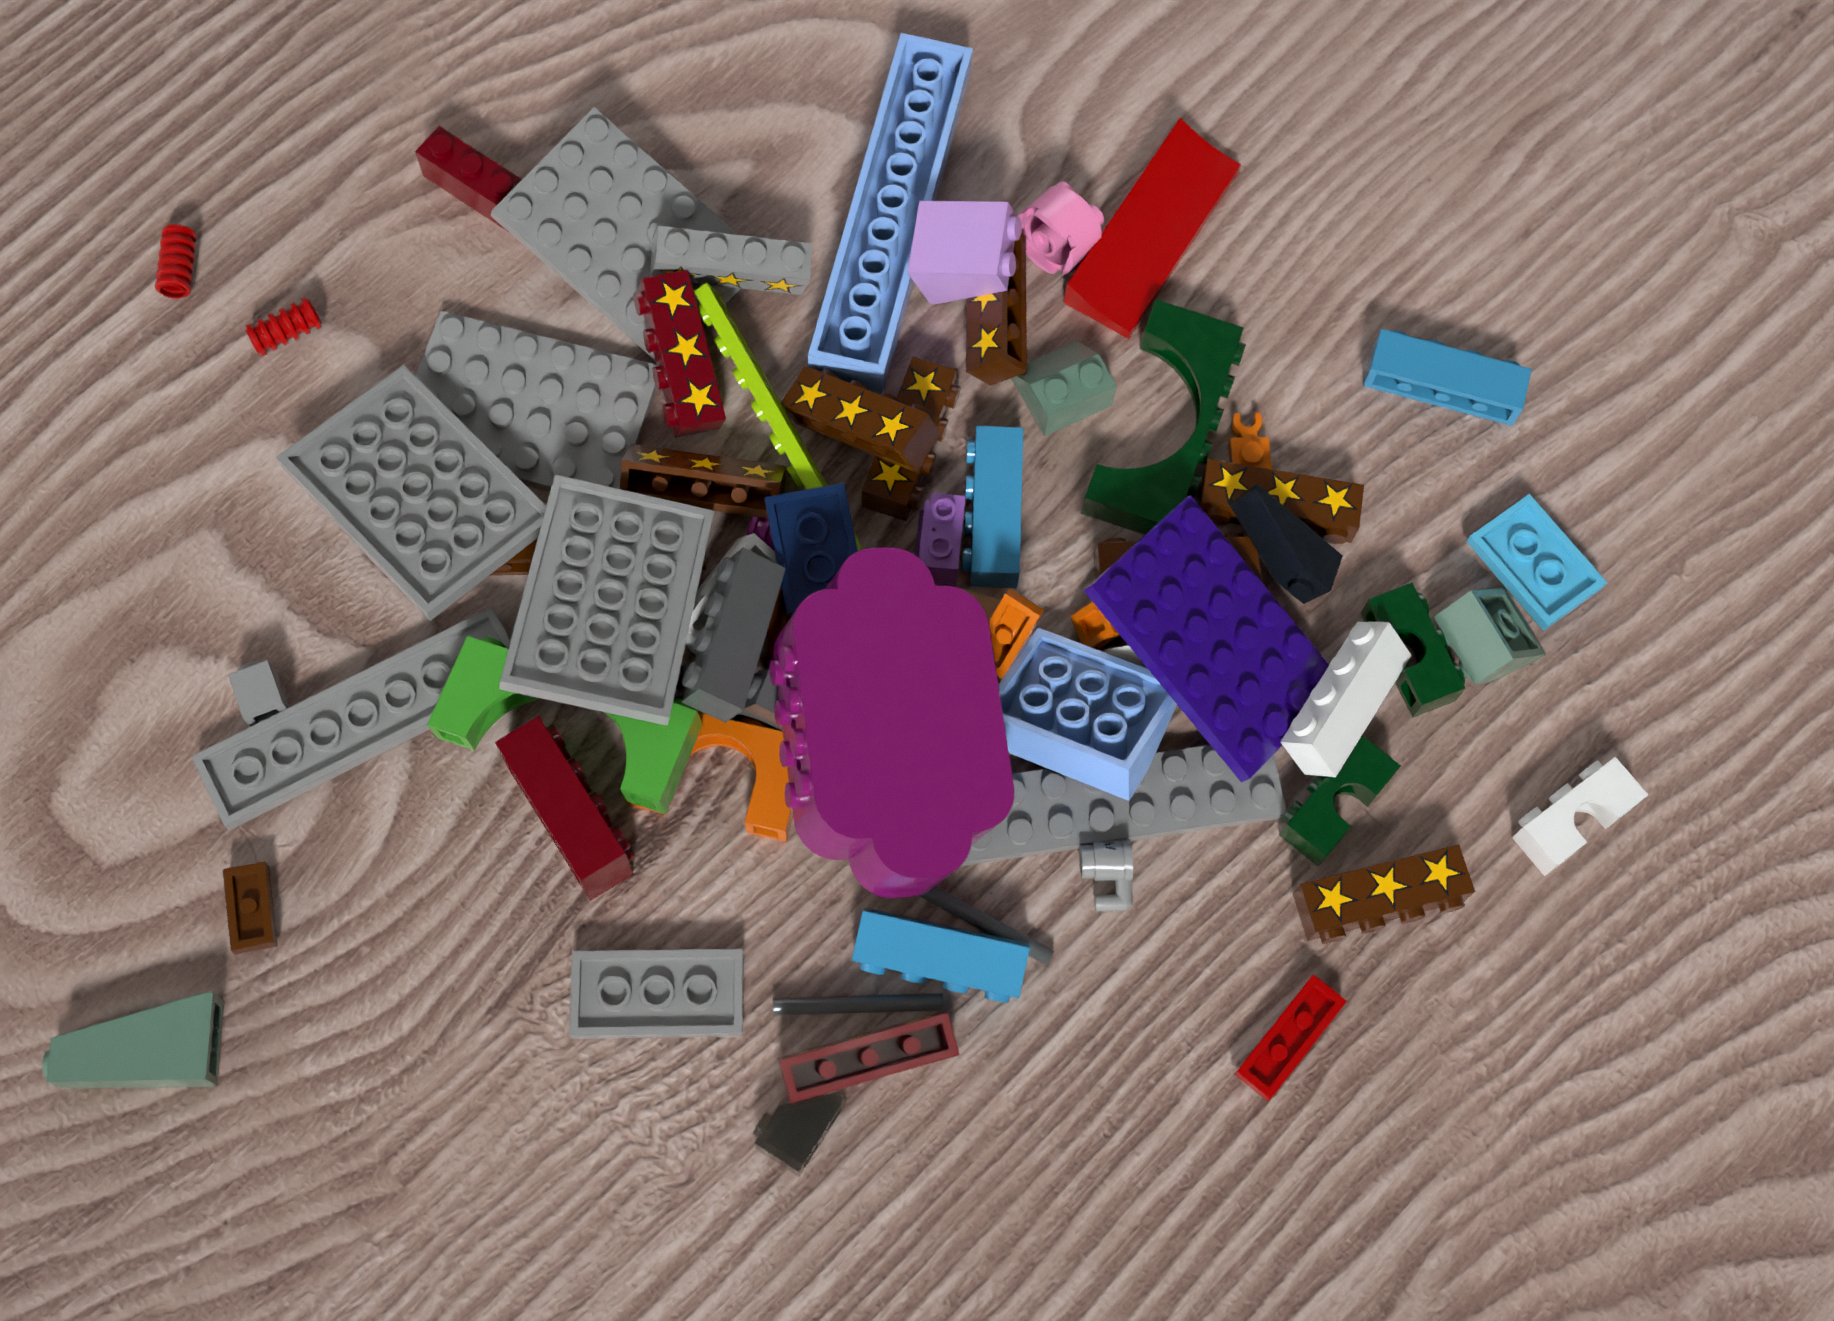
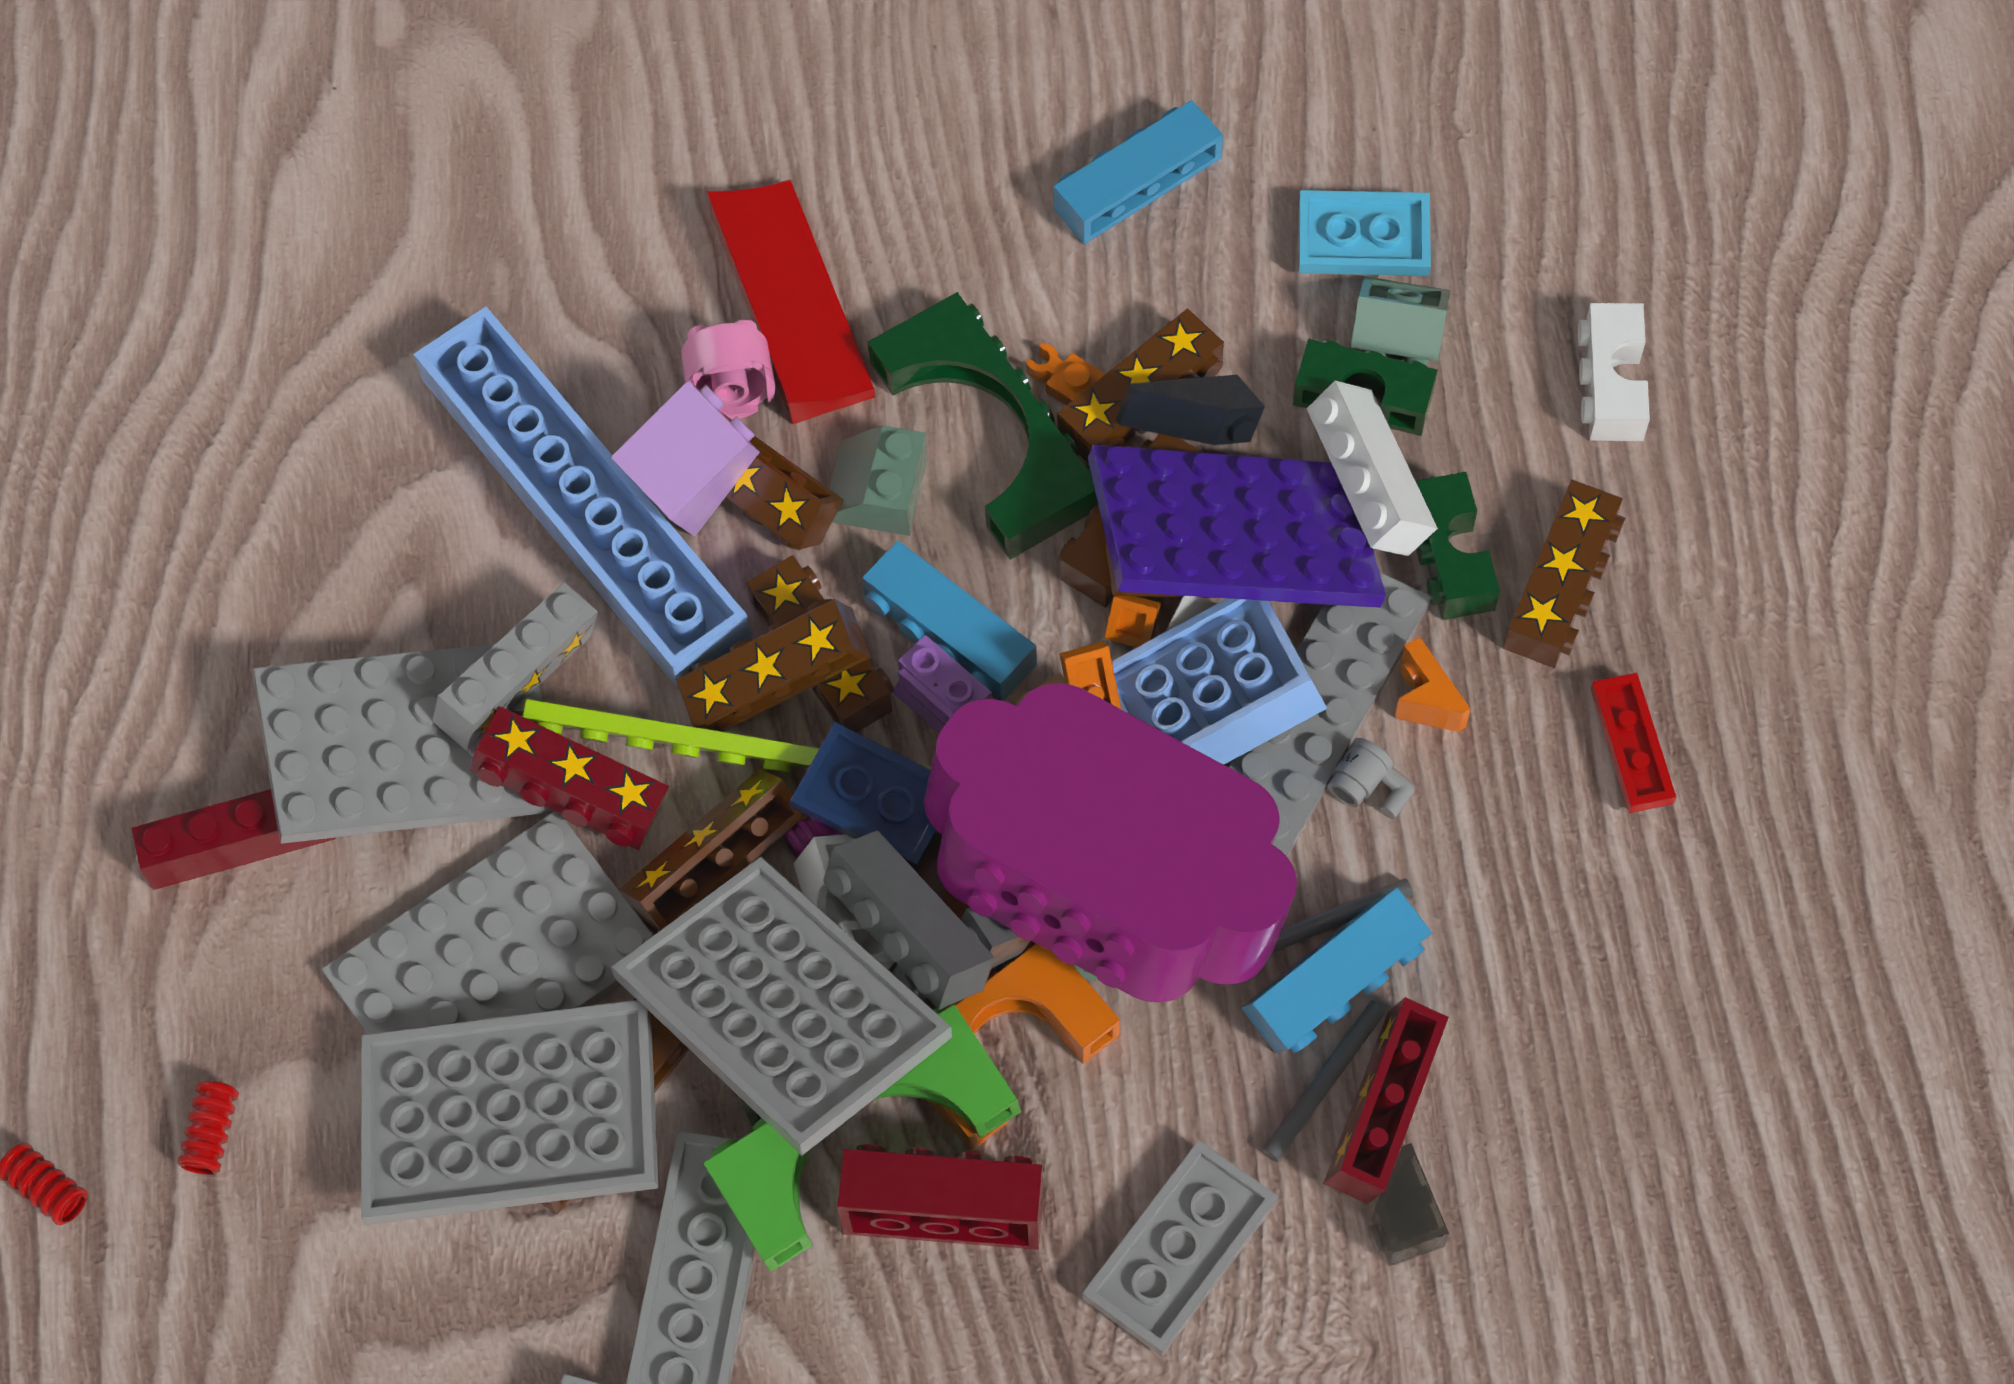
camera: 45 degrees left, 5 degrees down
(1207, 872) = (1435, 698): none -> orange slope

